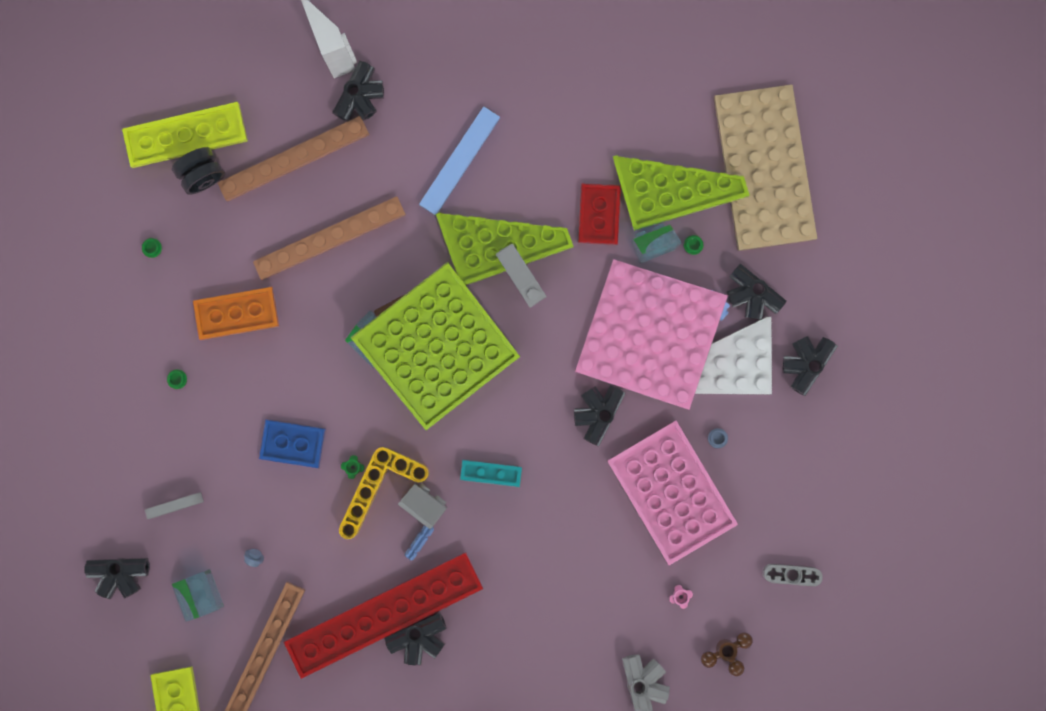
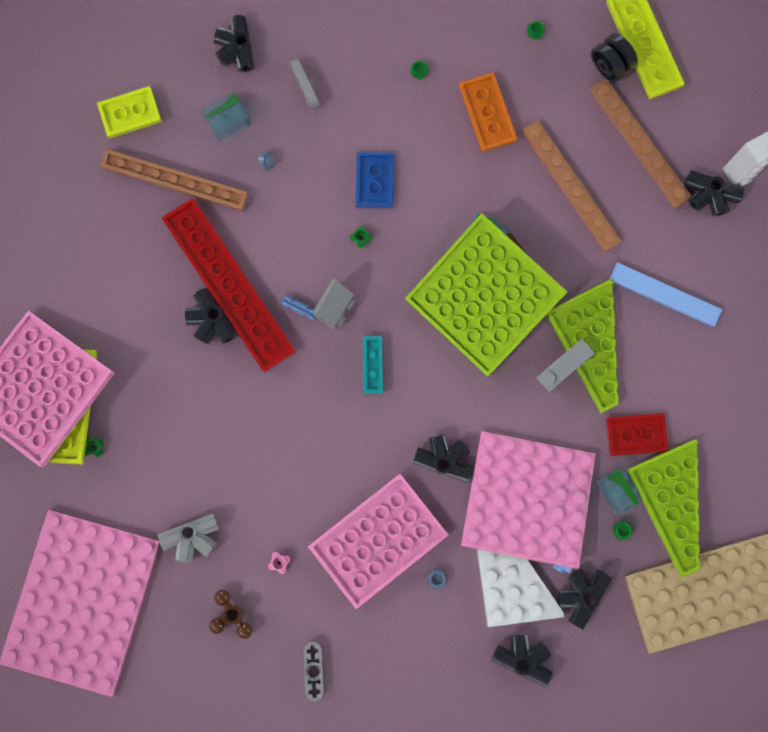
camera: 85 degrees right, 5 degrees down
(374, 485) = (346, 259): yellow beam -> none

